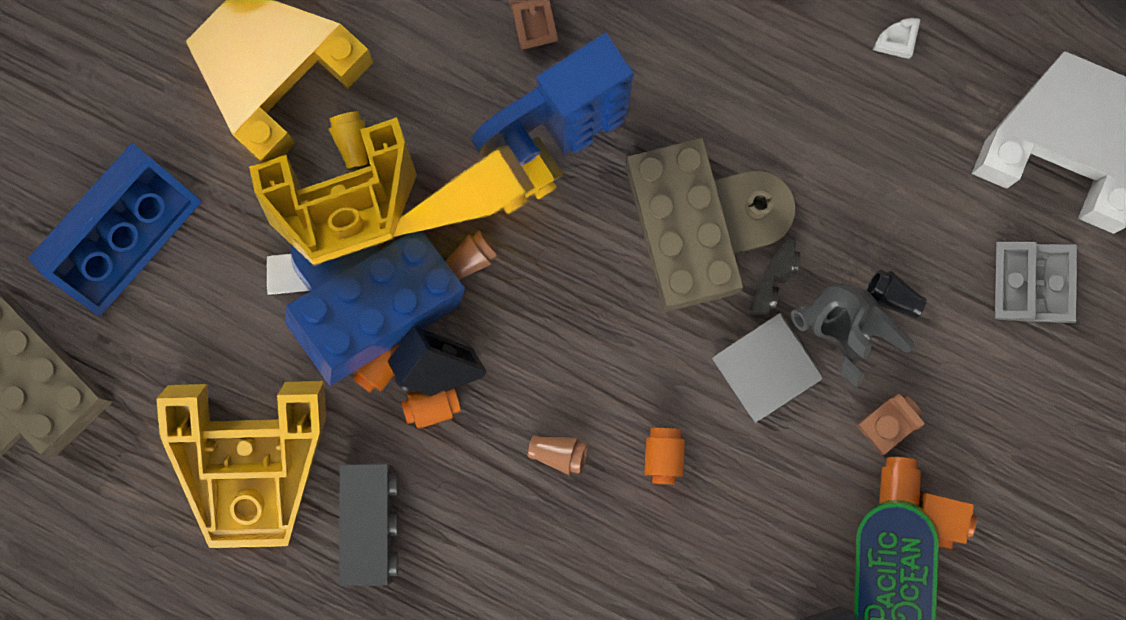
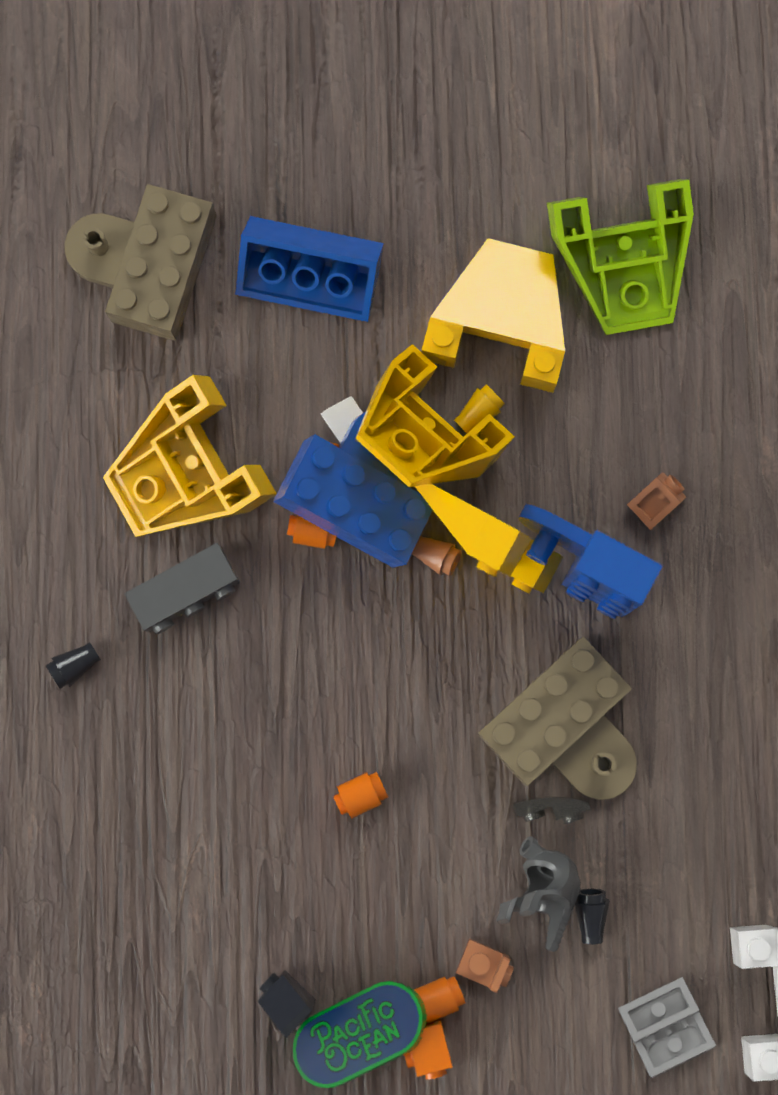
camera: 65 degrees right, 0 degrees up
(430, 410) = (302, 587): orange brick -> none
(433, 363) = (335, 572): black slope -> none
(560, 453) = (318, 709): nougat cone -> none
(768, 367) = (476, 841): light grey slope -> none

